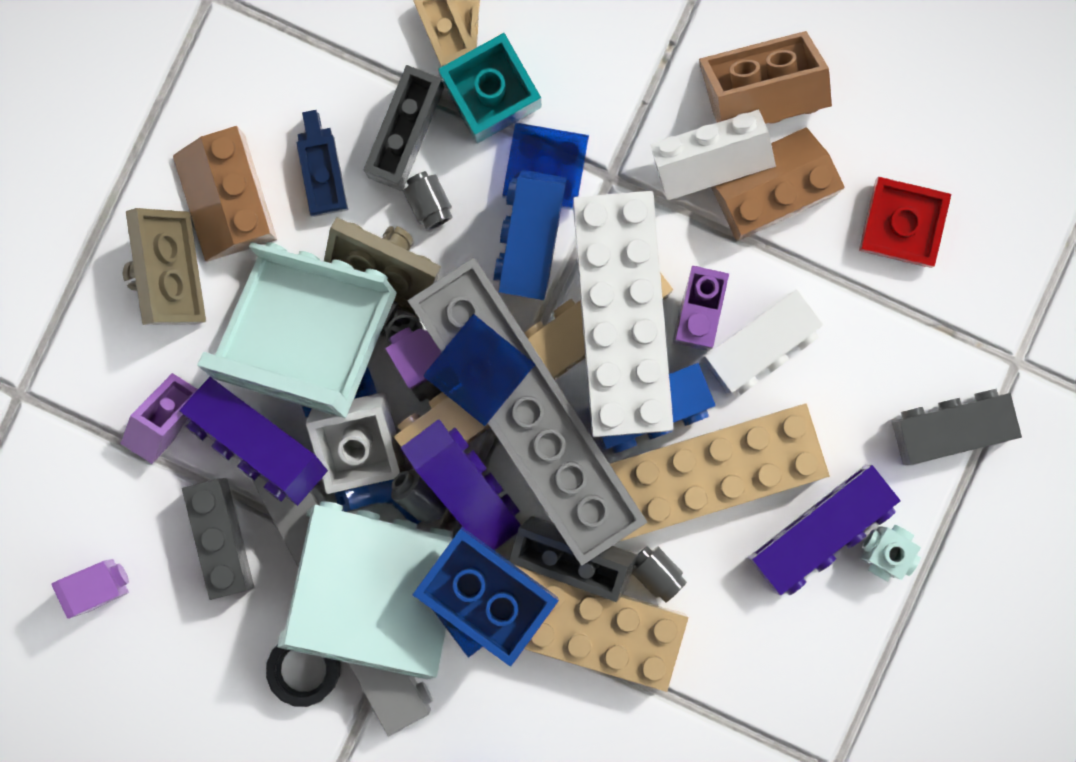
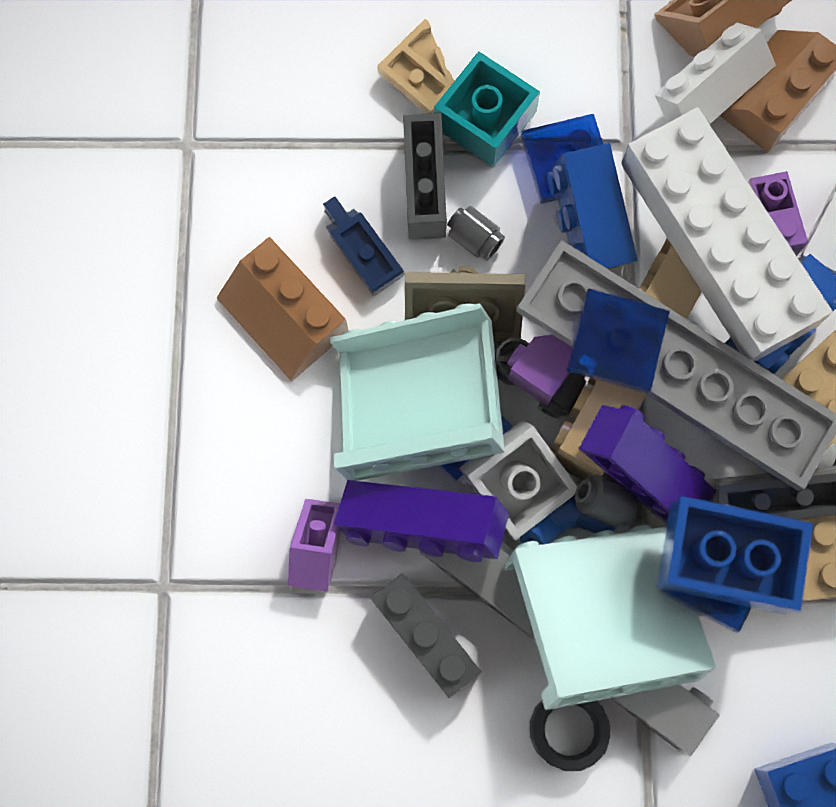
camera: 25 degrees left, 10 degrees down
(91, 588) = (323, 741): medium lavender slope -> none
(164, 267) = (256, 397): dark tan plate -> none

